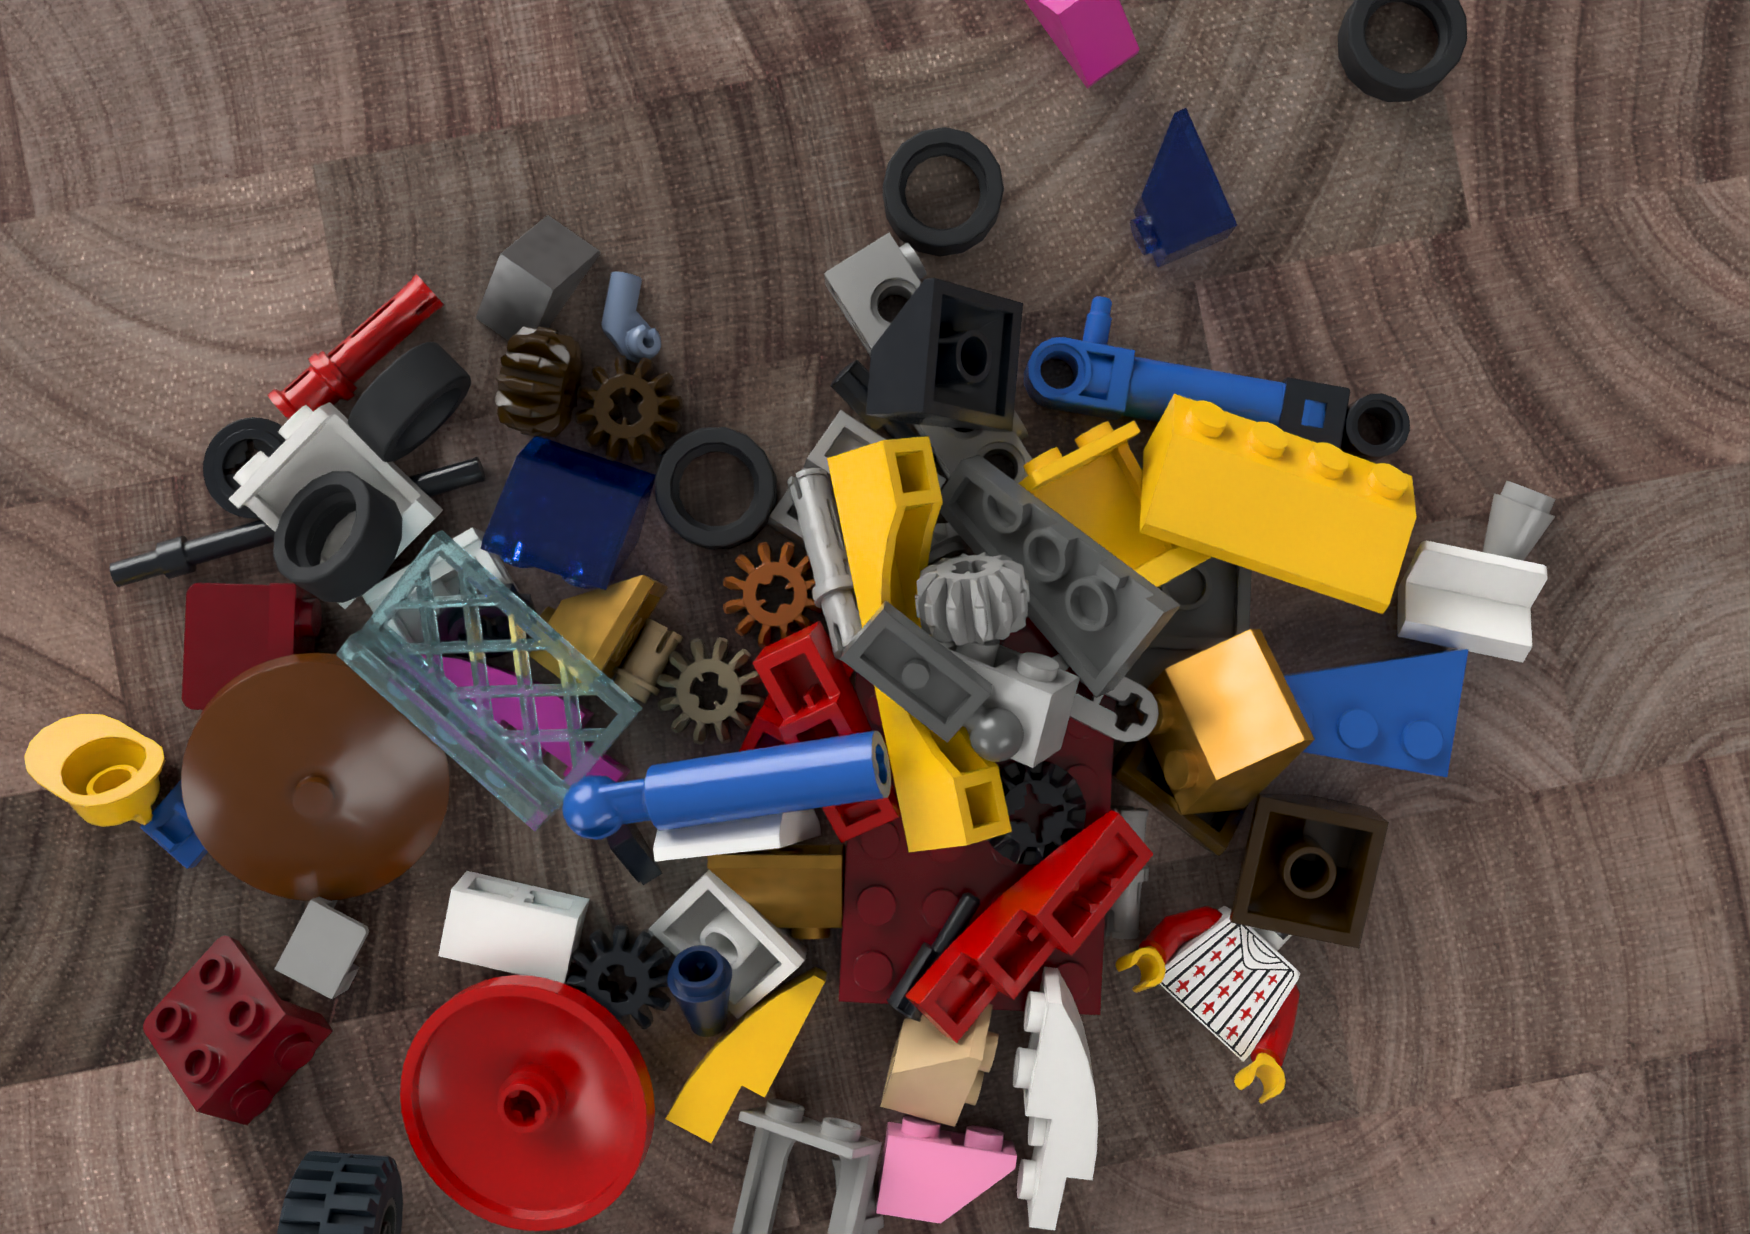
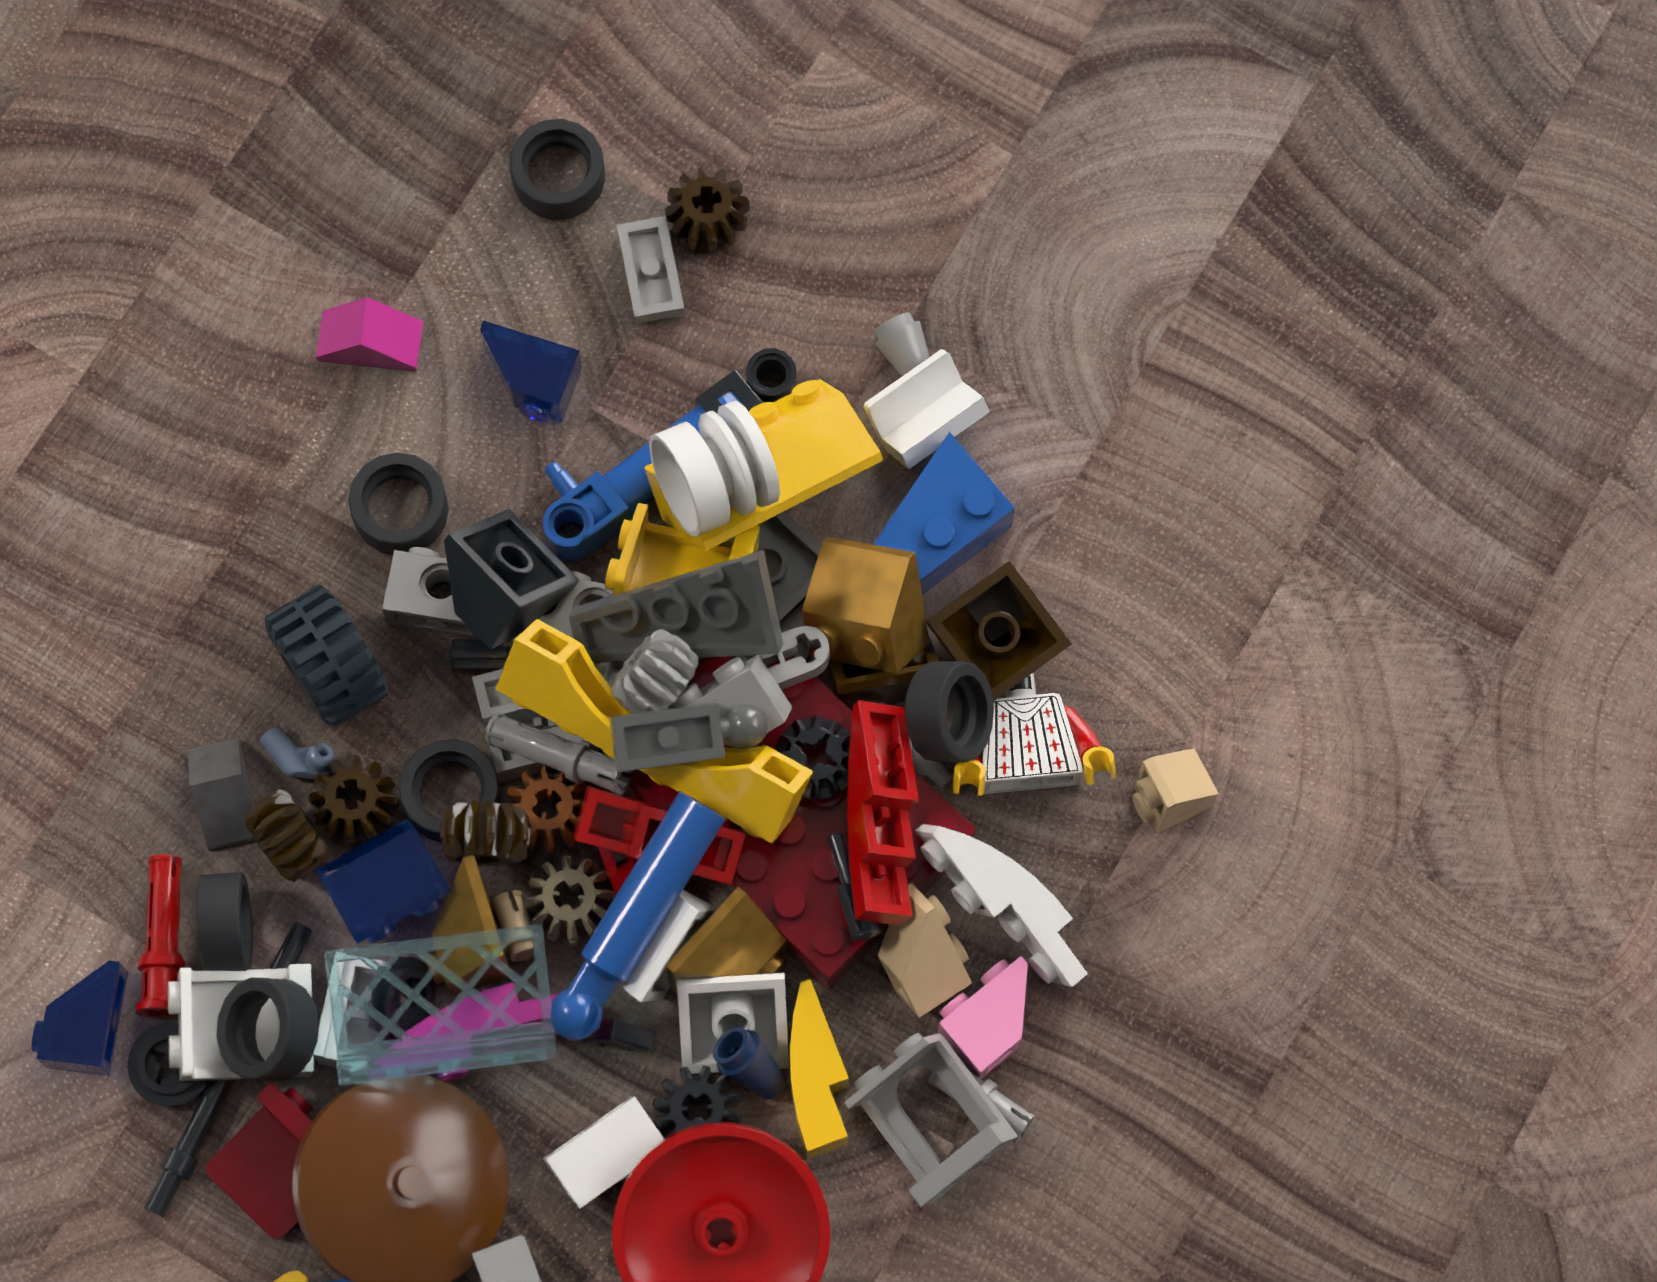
camera: 50 degrees left, 15 degrees down
(216, 360) = (83, 1023): none -> clear blue slope
(690, 569) = (488, 830): none -> dark brown gear
(729, 264) = (326, 655): none -> black wheel
(1187, 900) = (928, 709): none -> black tyre
(1225, 477) = (714, 468): none -> white wheel
(1301, 1156) = (1173, 789): none -> tan slope
(1379, 215) = (650, 270): none -> light grey plate
(1509, 227) = (700, 227): none -> dark brown gear

